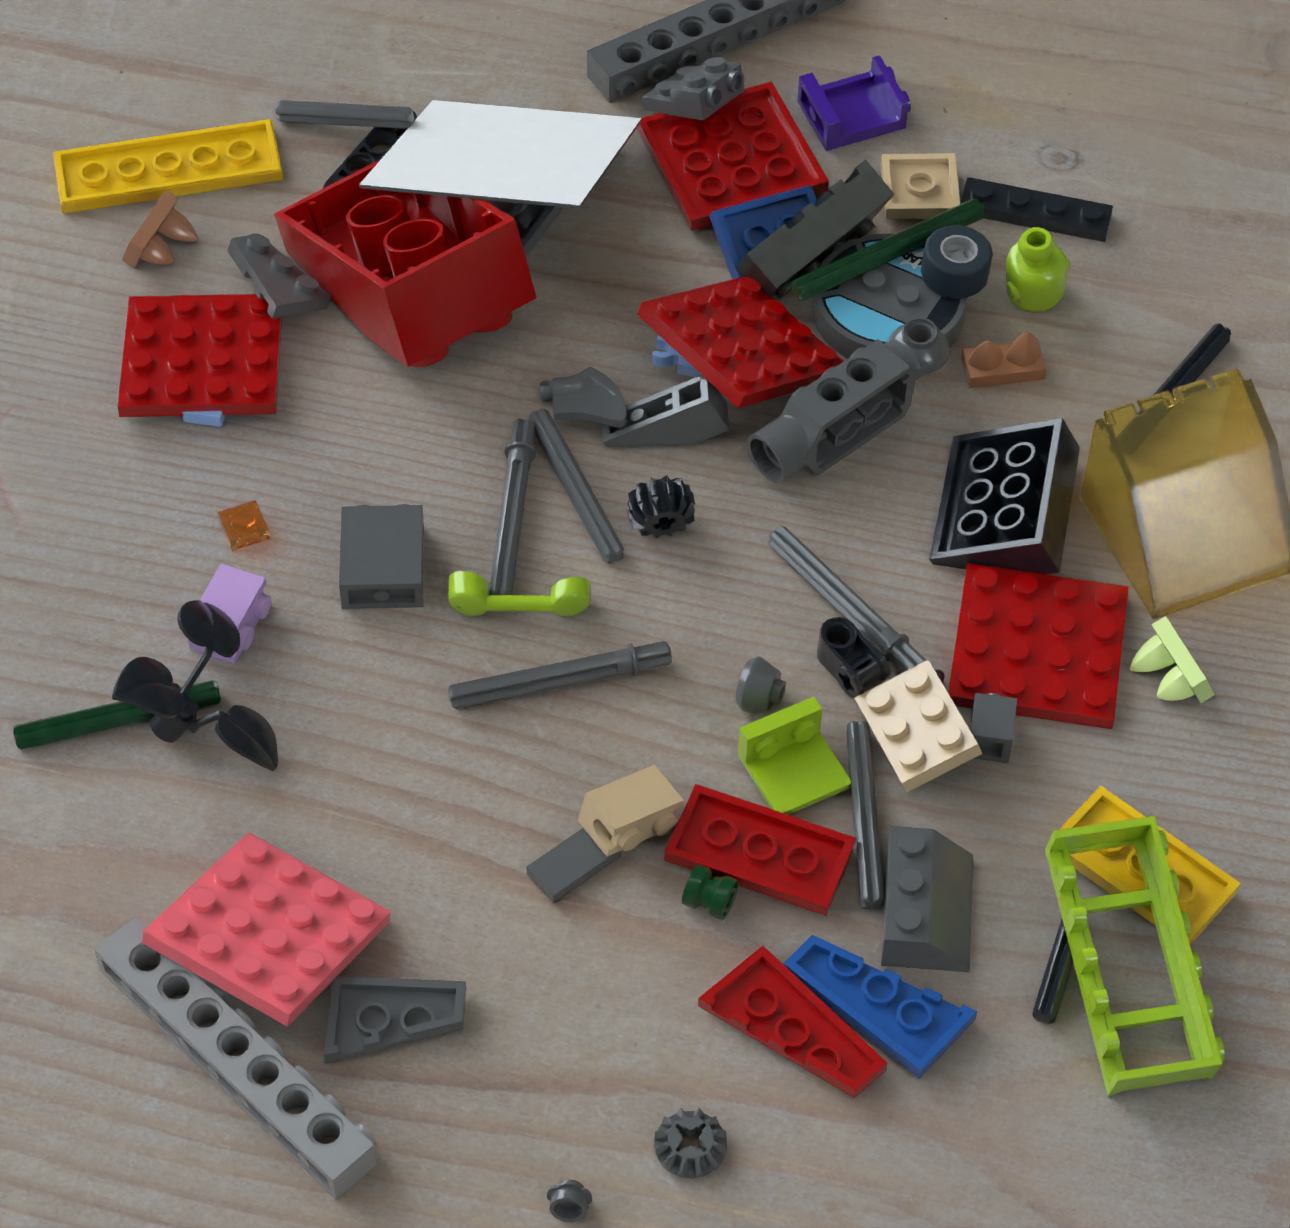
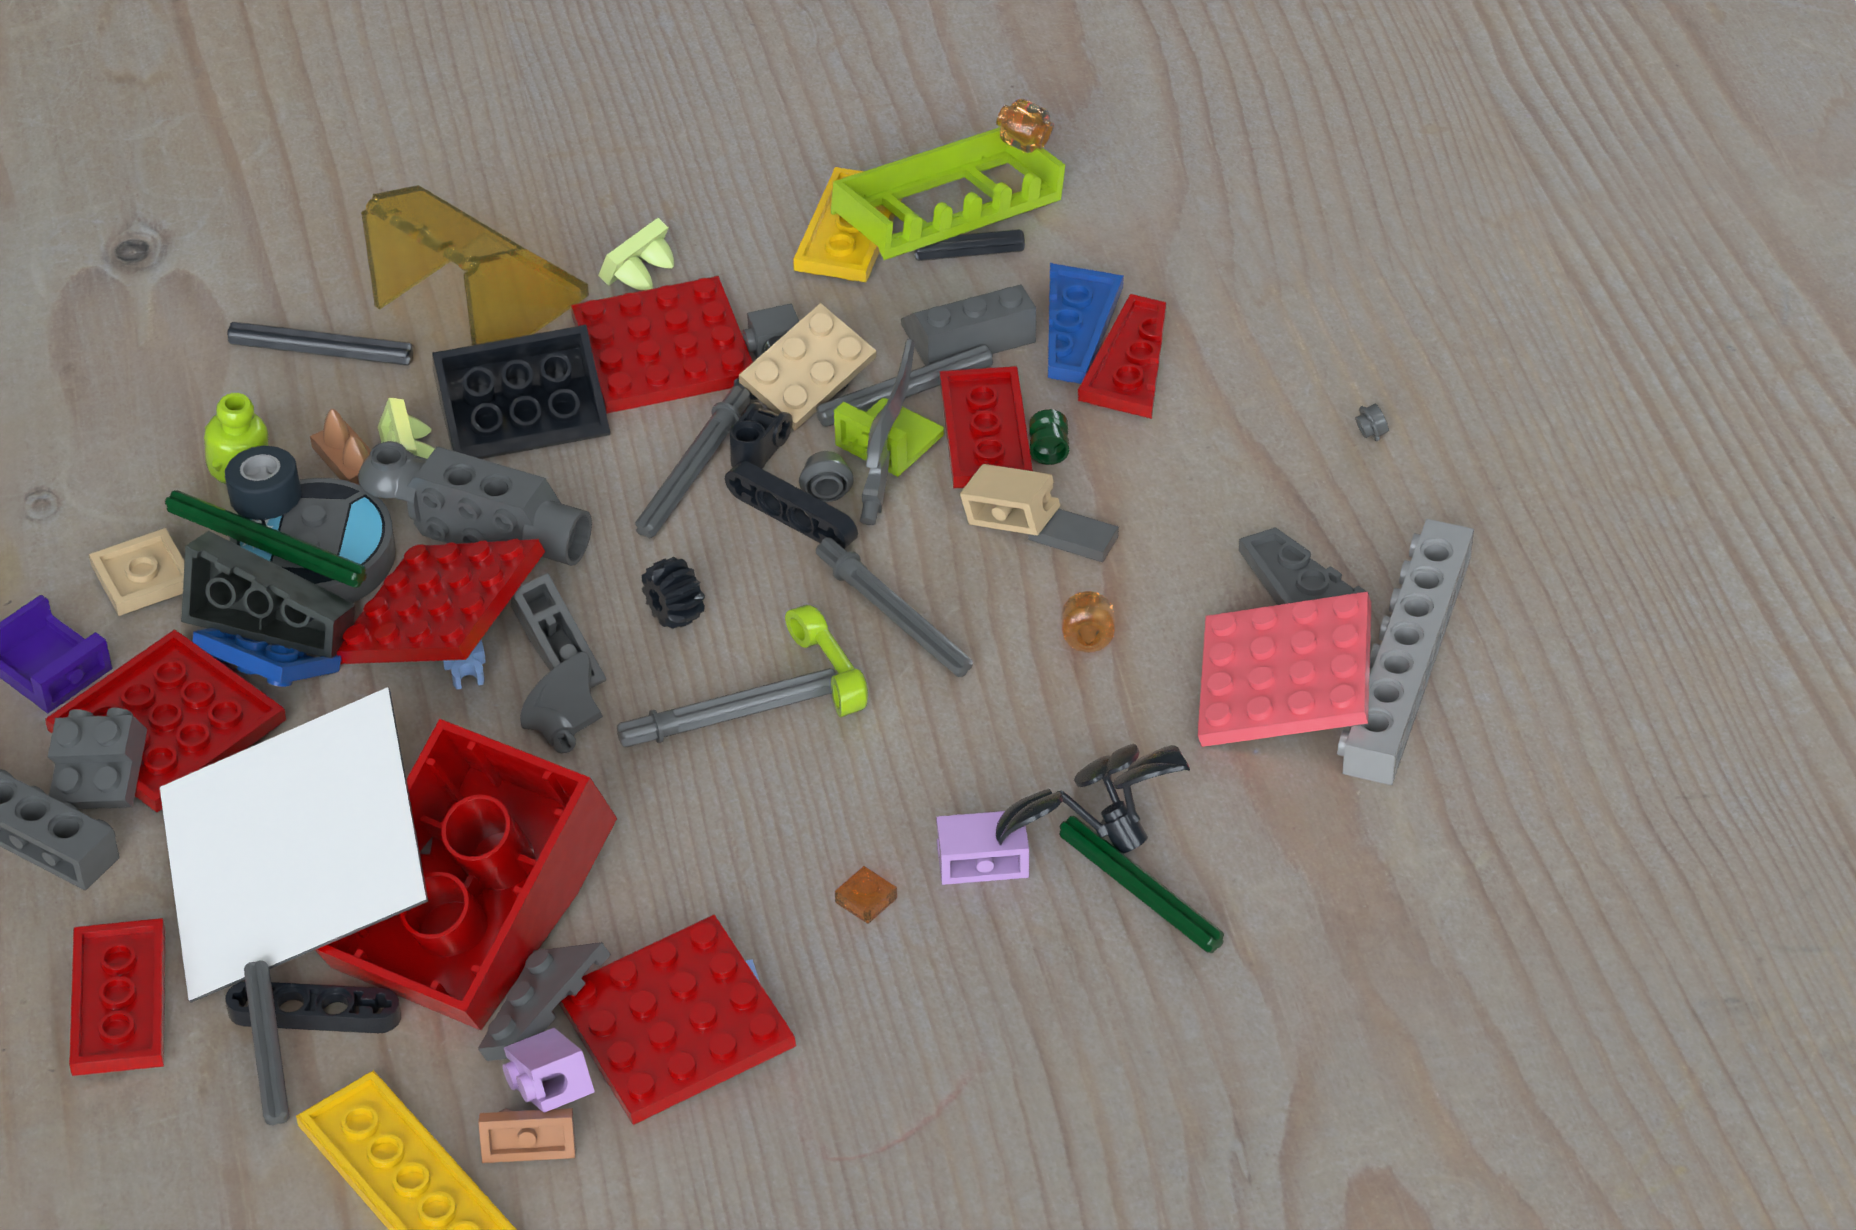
camera: 115 degrees left, 10 degrees down
(188, 247) = (547, 1070): none -> lavender brick
(381, 556) = (842, 763): dark grey panel -> none
(437, 807) = (1088, 621): none -> clear orange head
(455, 56) = (117, 997): none -> red plate
(577, 487) = (669, 678): dark grey axle -> none
(690, 1161) = (1282, 390): dark grey gear -> none
(729, 707) = (877, 452): none -> dark grey piece
(736, 647) = (790, 504): none -> black beam
(977, 394) = (403, 428): none -> yellowish green tile
(1040, 209) = (127, 487): black plate -> none
(1180, 1046) = (1024, 125): none -> clear orange head

